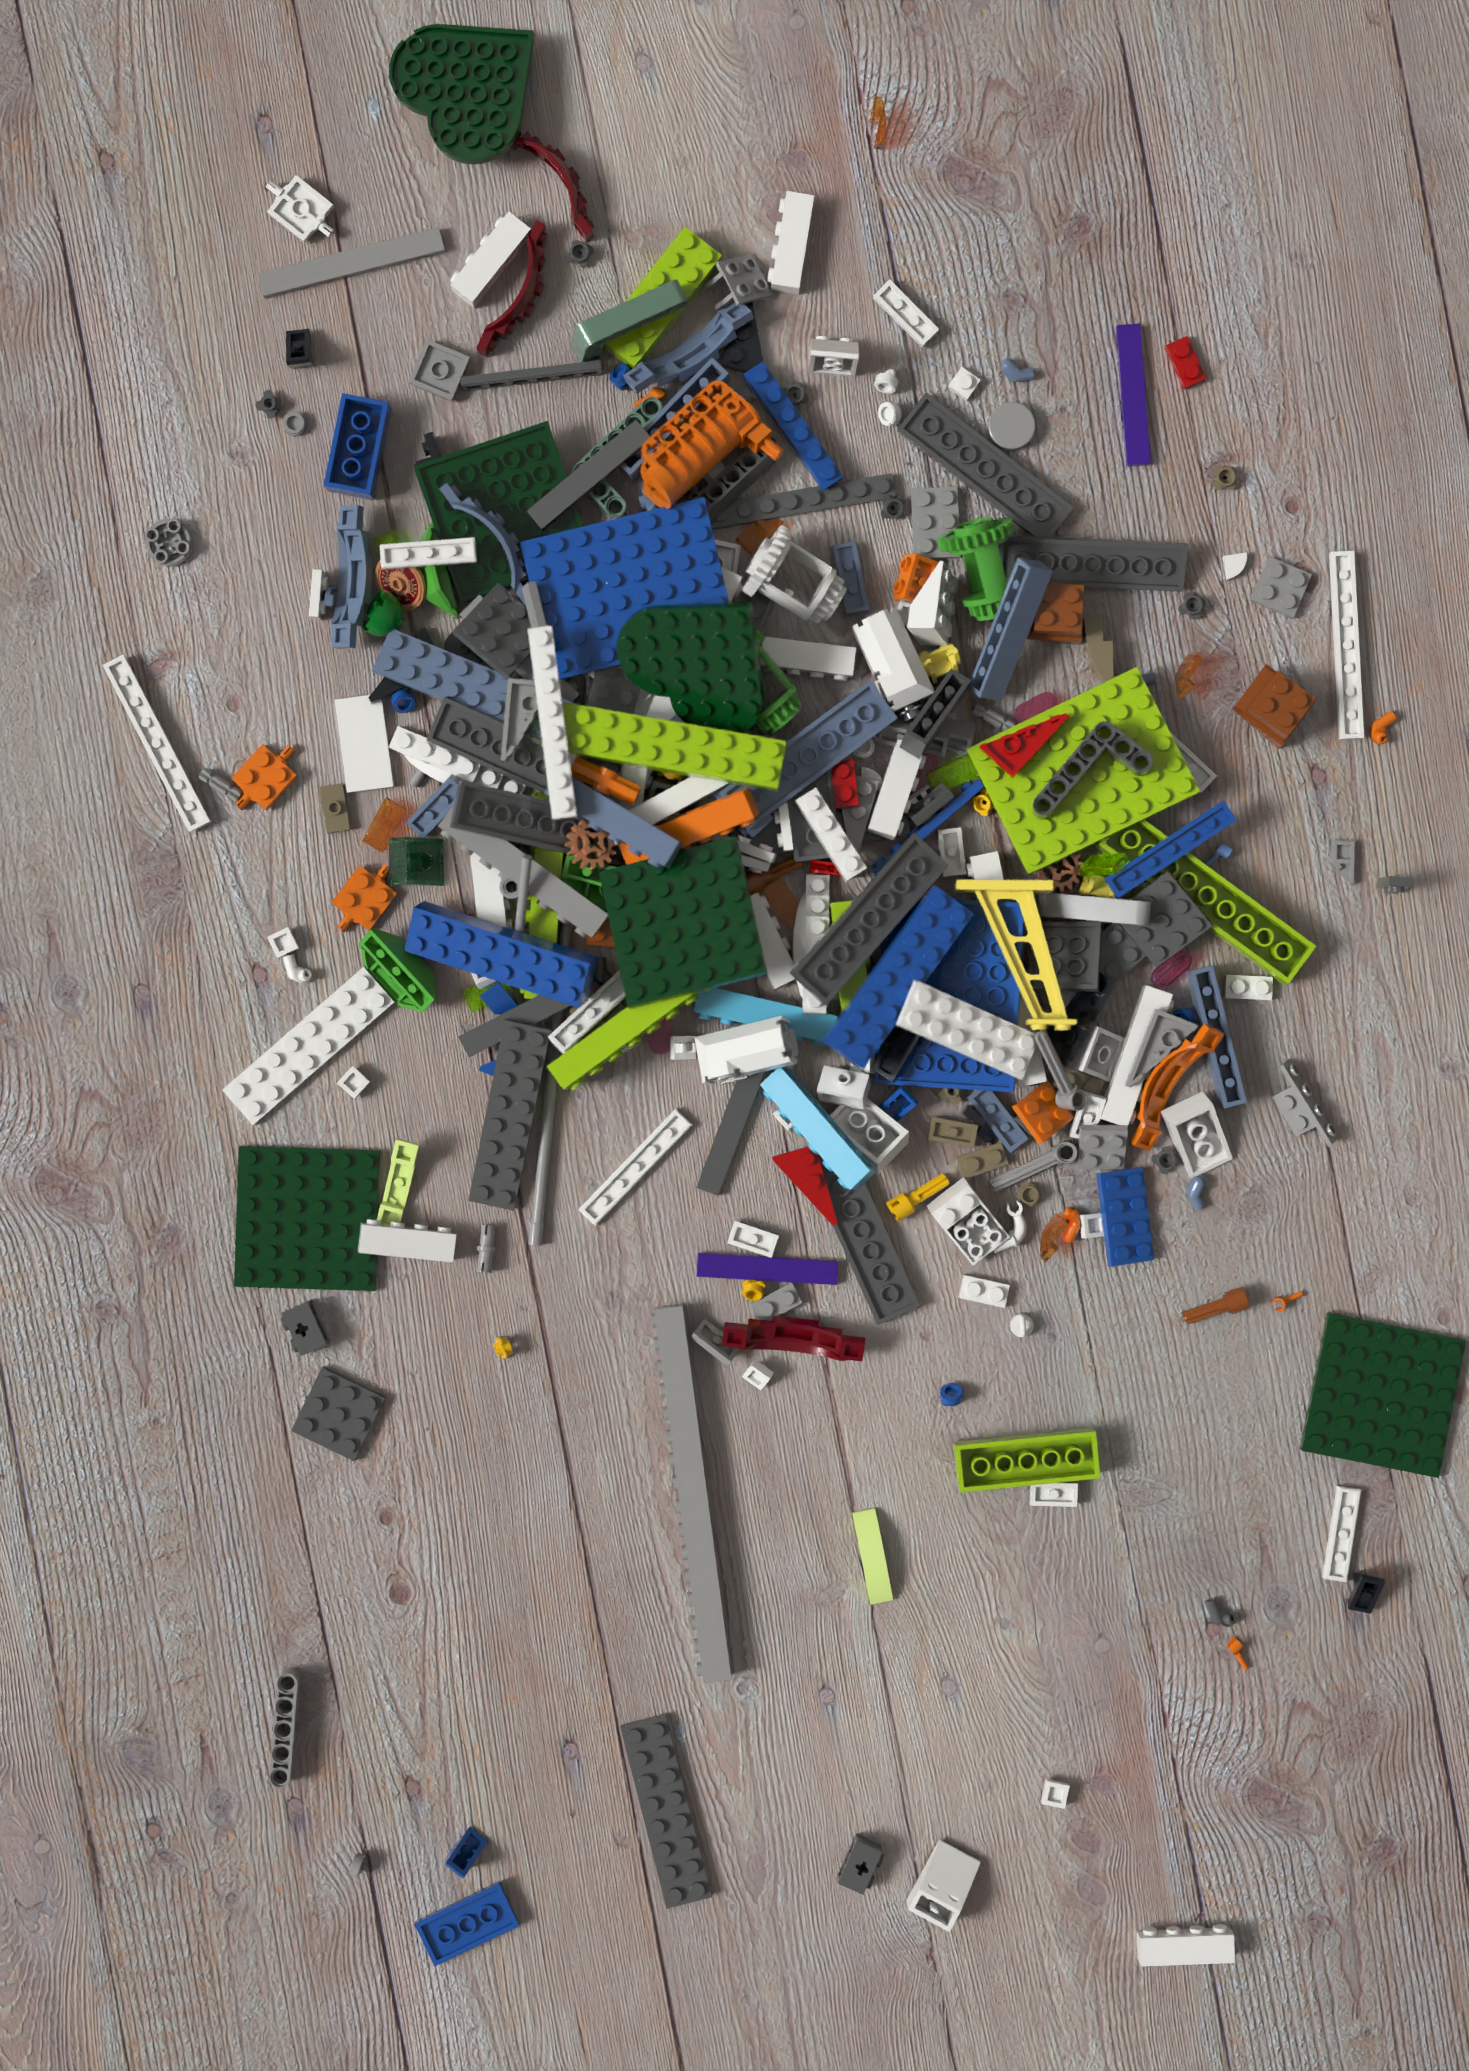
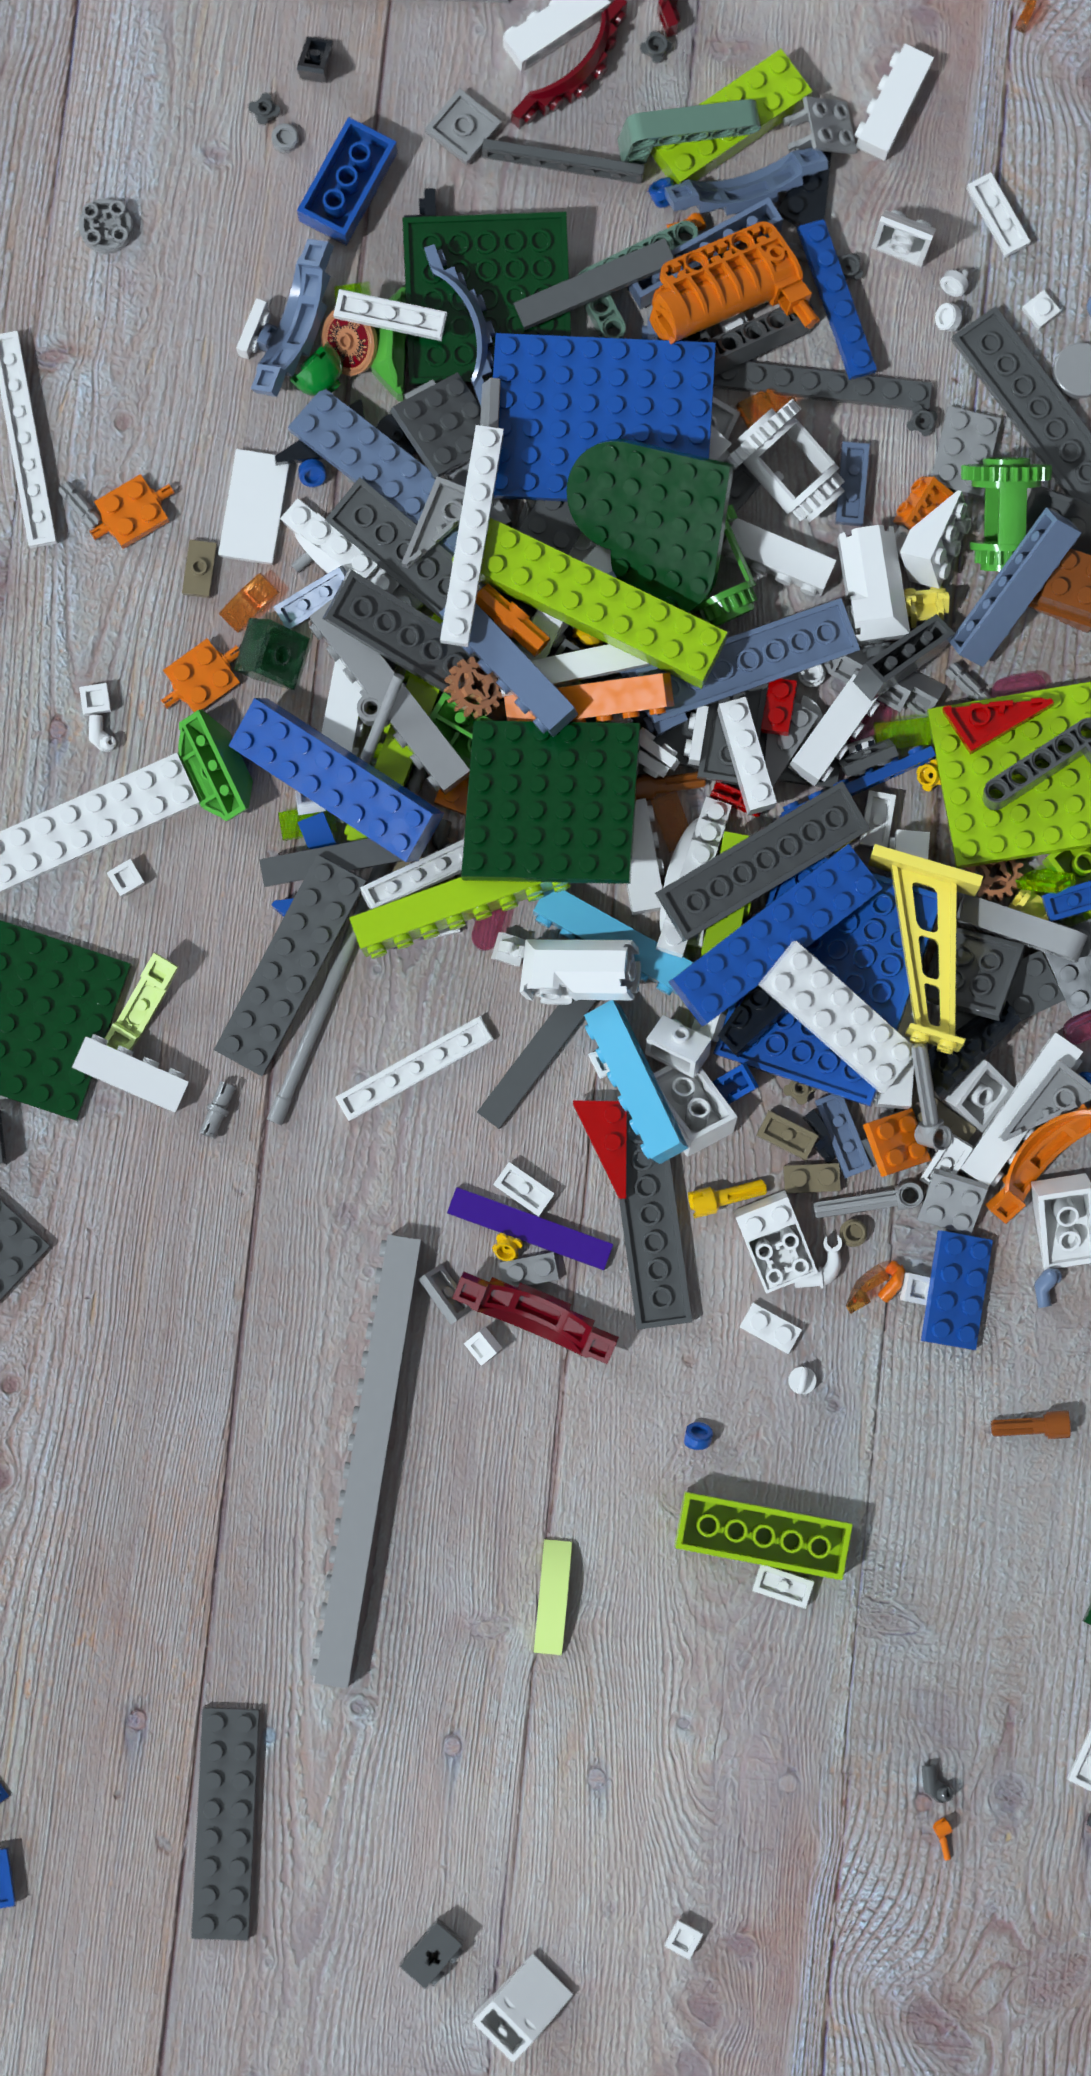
camera: 10 degrees right, 5 degrees down
(502, 1347) = (201, 1228): yellow plate -> none
(1171, 1160) = (1028, 1241): dark grey plate -> none

